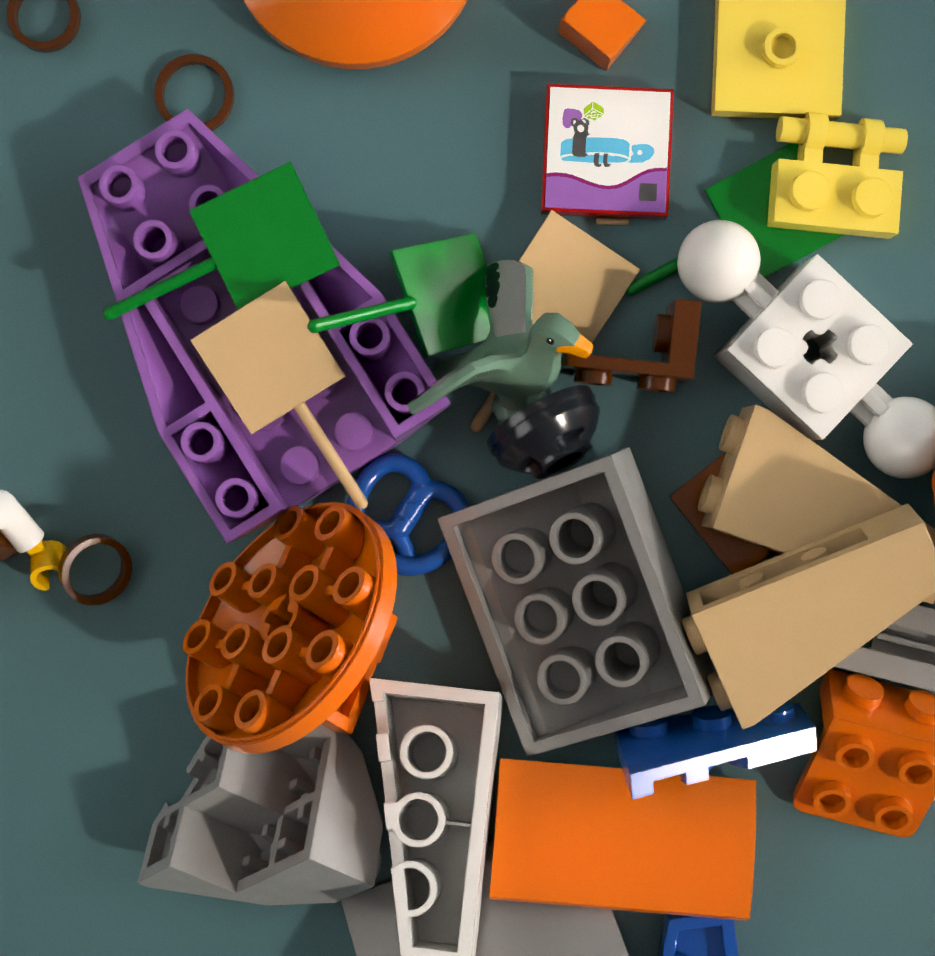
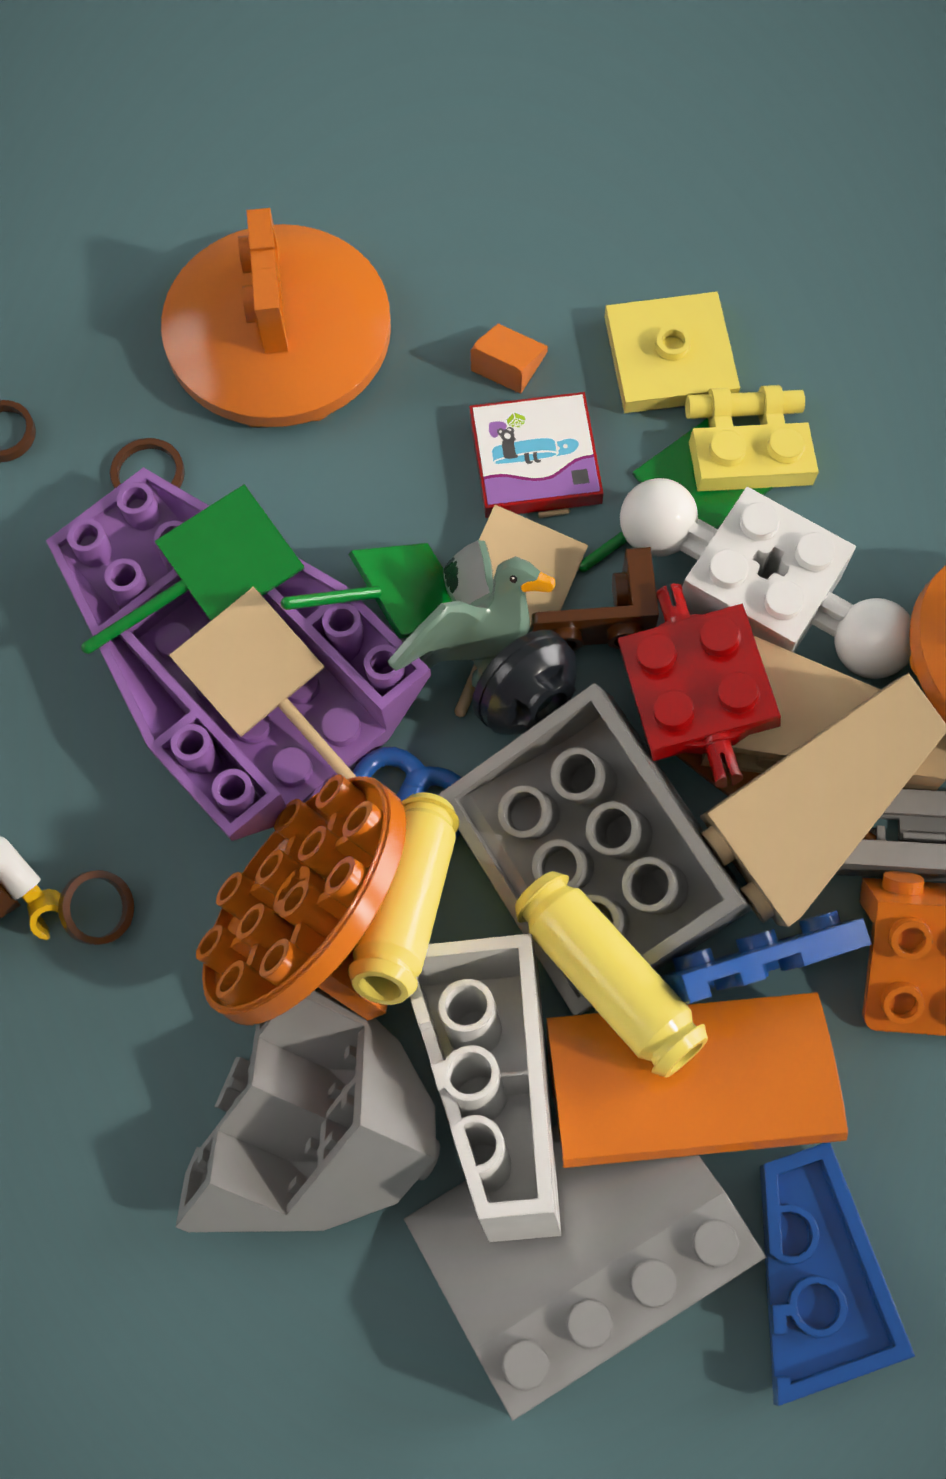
camera: 10 degrees left, 20 degrees down
(419, 582) = (398, 938): none -> light yellow axle
(566, 744) = (610, 973): none -> light yellow axle
(716, 465) = (699, 683): none -> red plate

